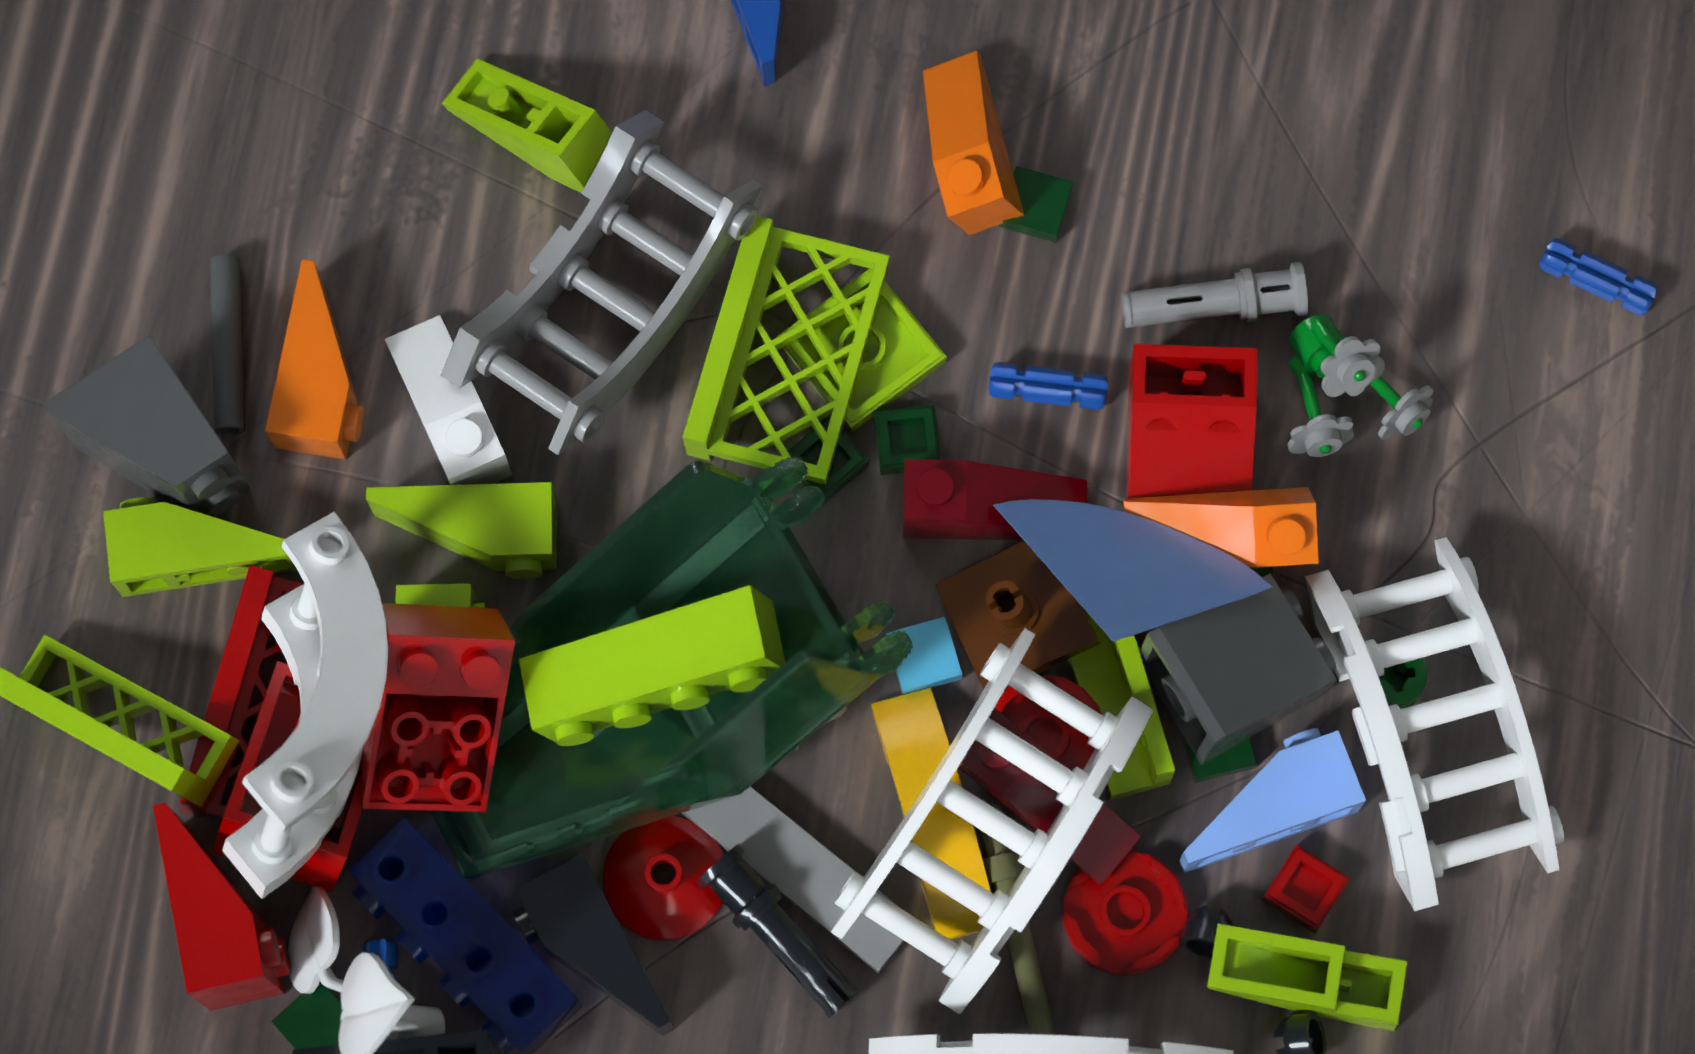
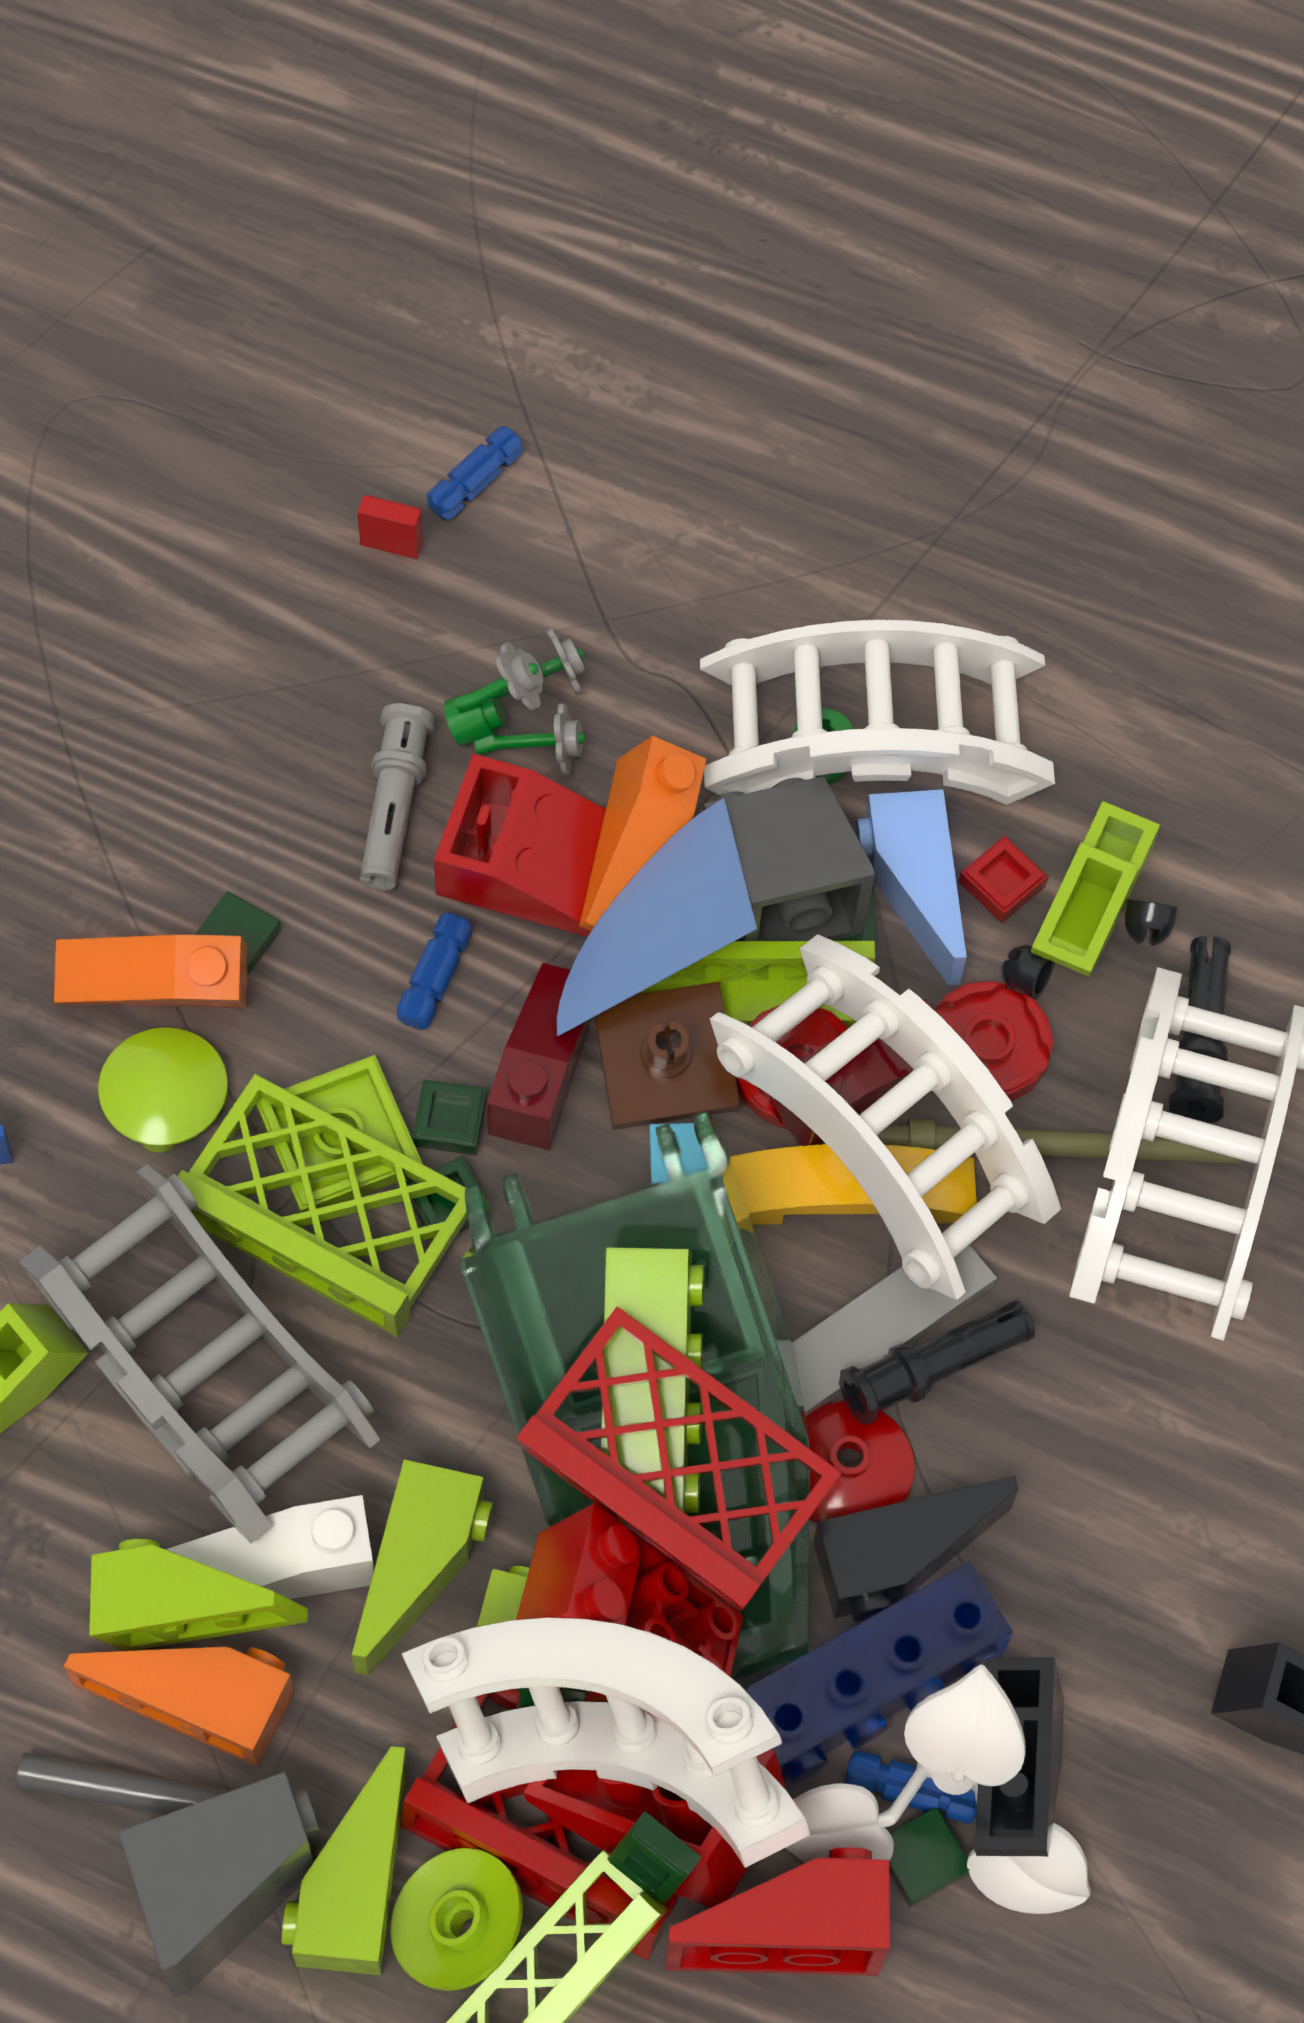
camera: 80 degrees left, 10 degrees down
(167, 639) = (436, 1906): none -> lime dish
(223, 775) = (654, 1858): none -> dark green tile
(386, 332) = (160, 1599): none -> lime slope
(522, 693) = (642, 1508): none -> red fence
(865, 186) = (163, 1087): none -> lime dish
(1505, 213) = (390, 526): none -> red tile

